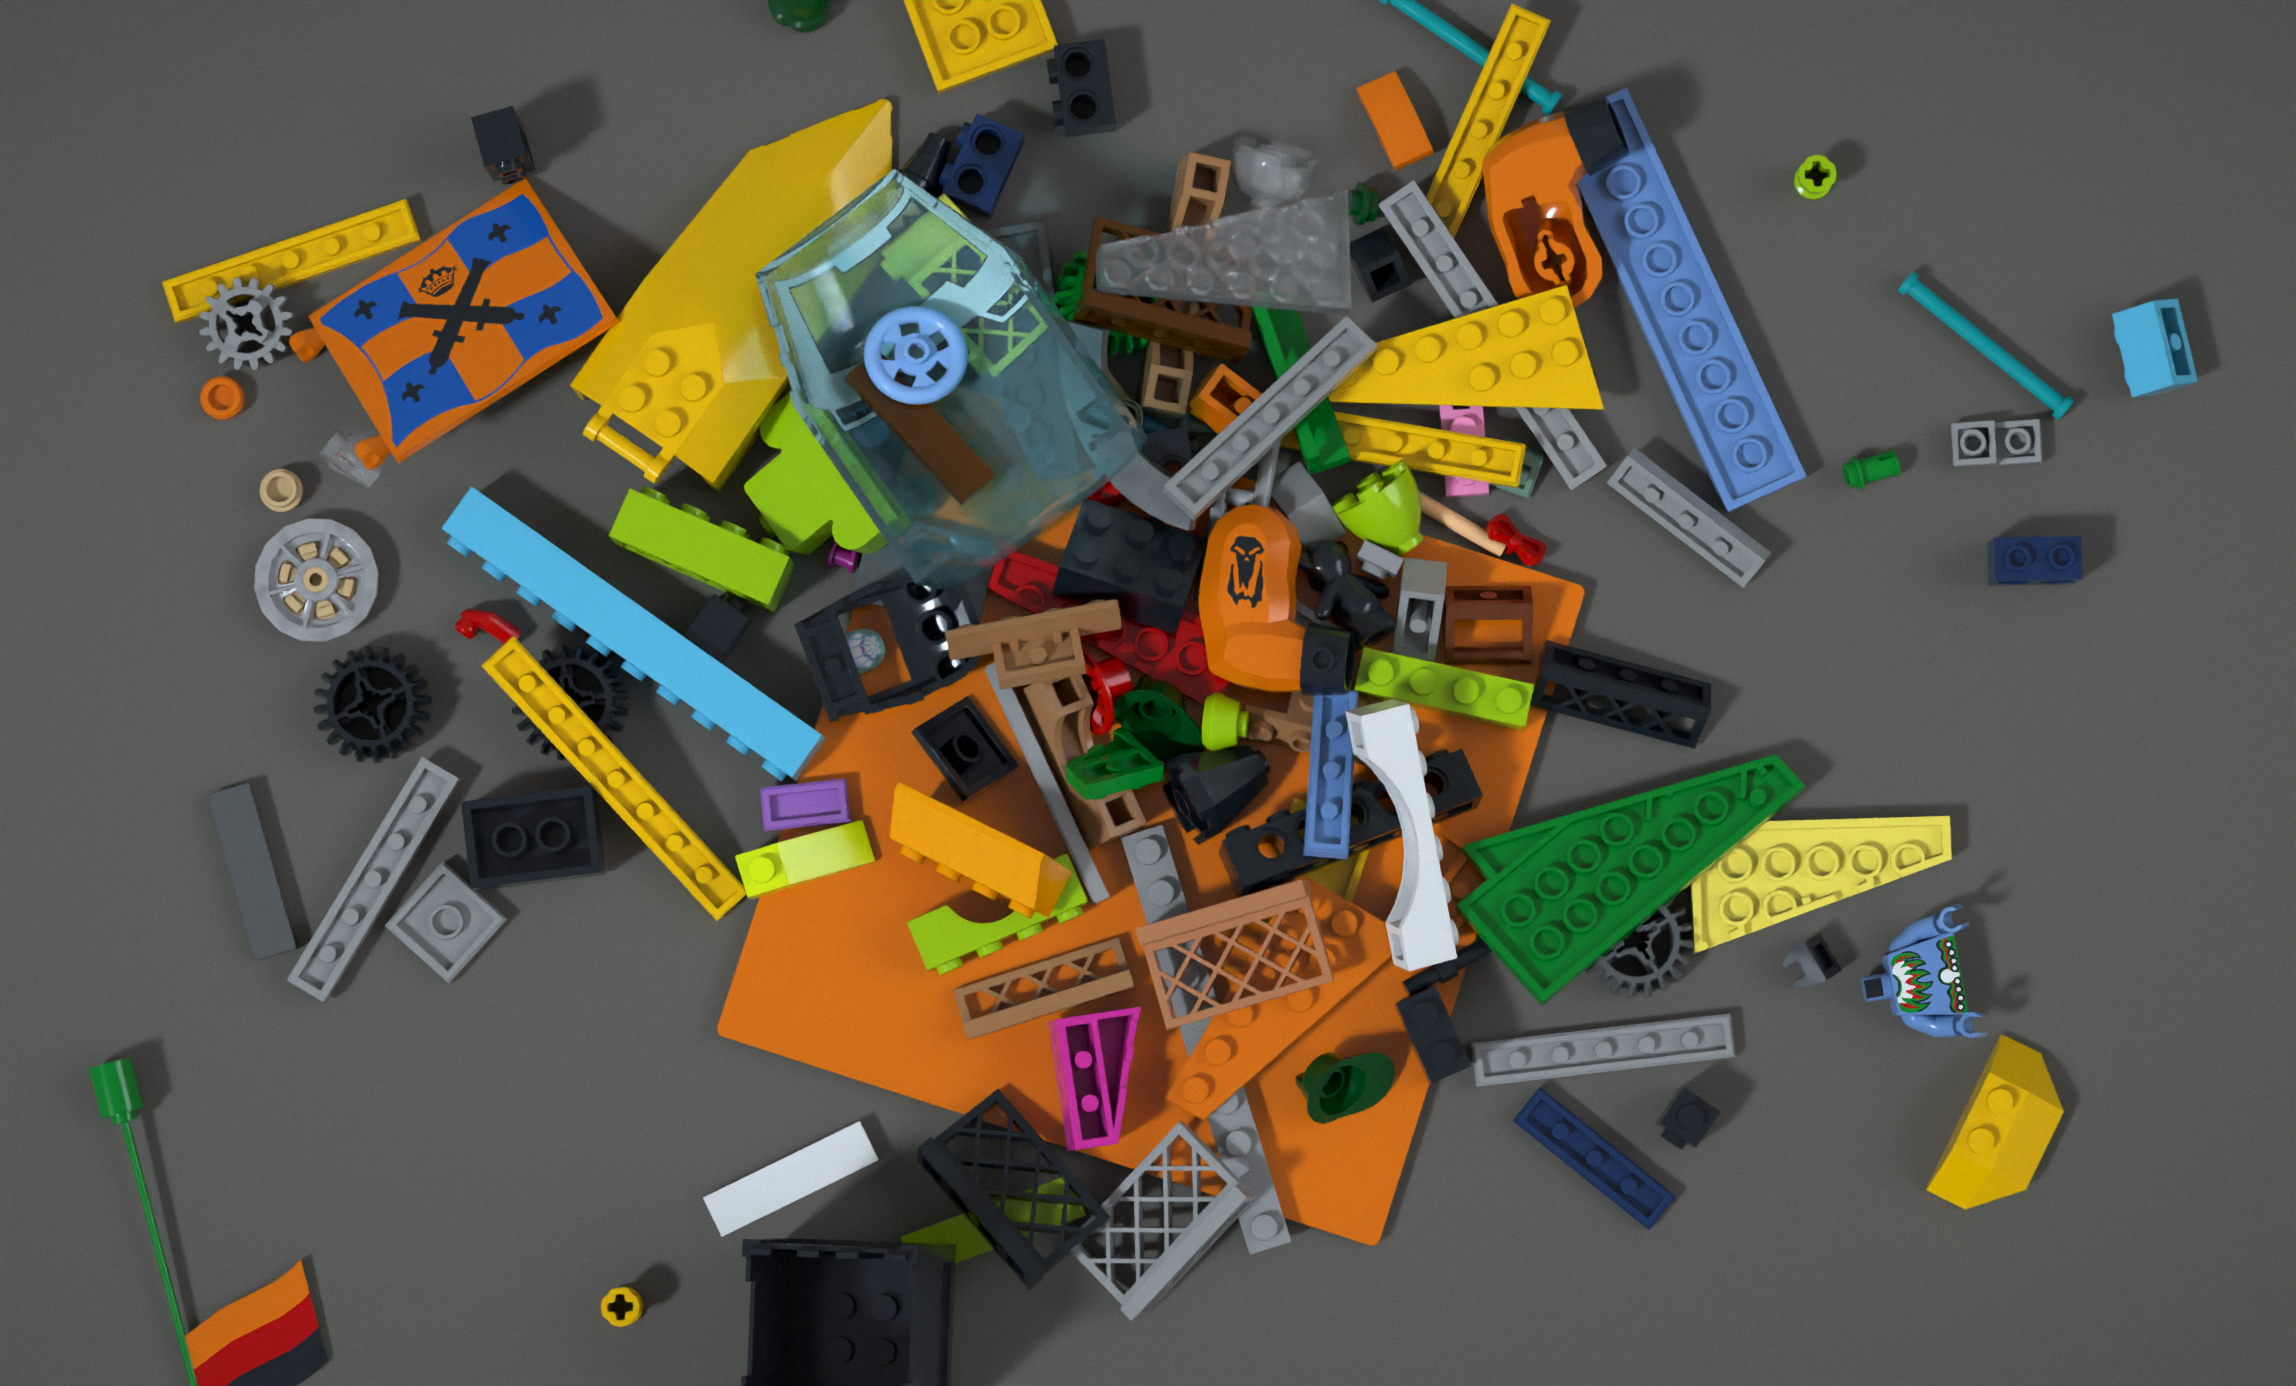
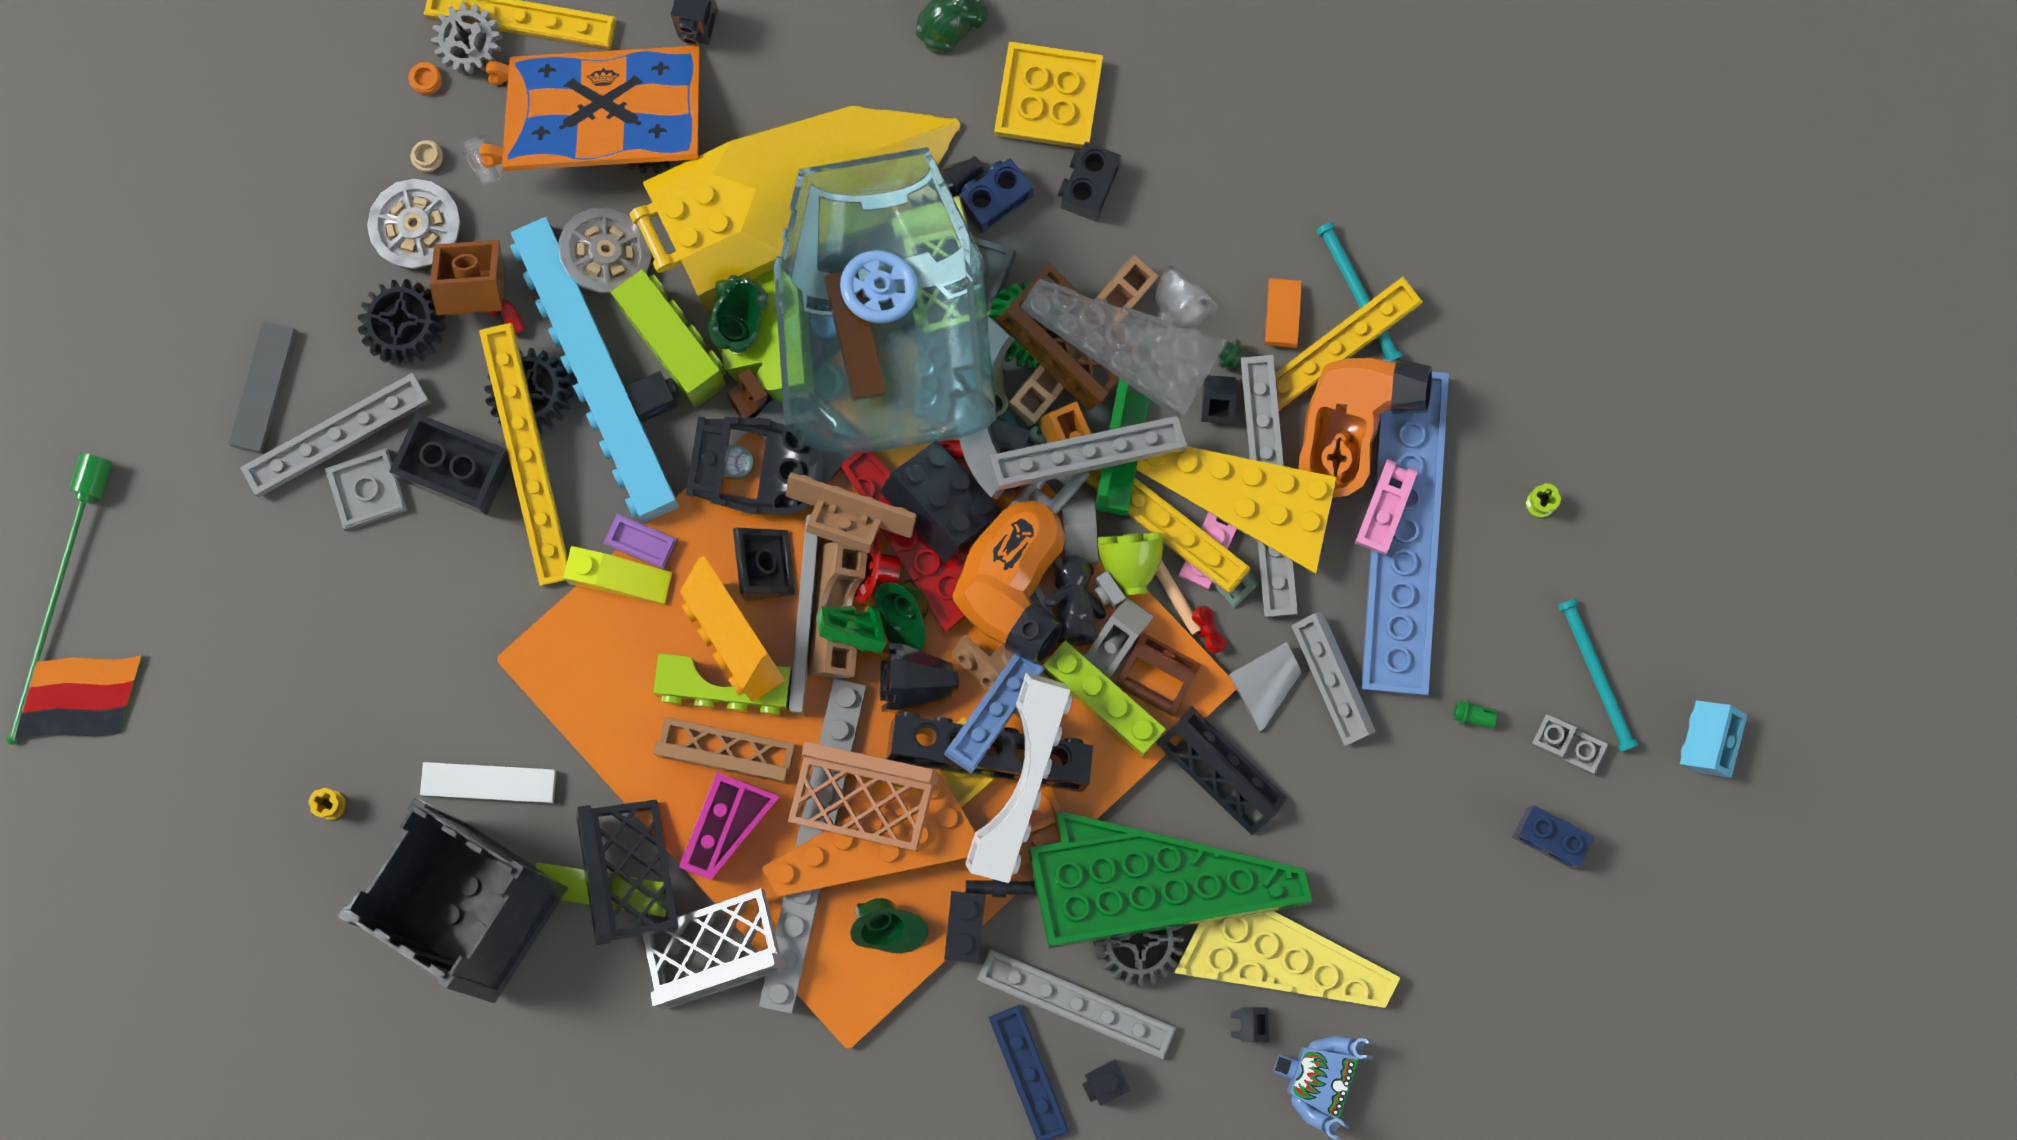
camera: 30 degrees right, 5 degrees down
(424, 609) = (467, 277): none -> dark orange brick
(563, 487) = (602, 249): none -> flat silver piece
(771, 479) = (737, 313): none -> dark green hair
(833, 568) = (747, 397): none -> reddish brown slope
(1223, 722) = (943, 638): lime cone -> none
(1615, 566) = (1266, 683): none -> light grey slope
(1641, 287) = (1385, 508): none -> bright pink plate

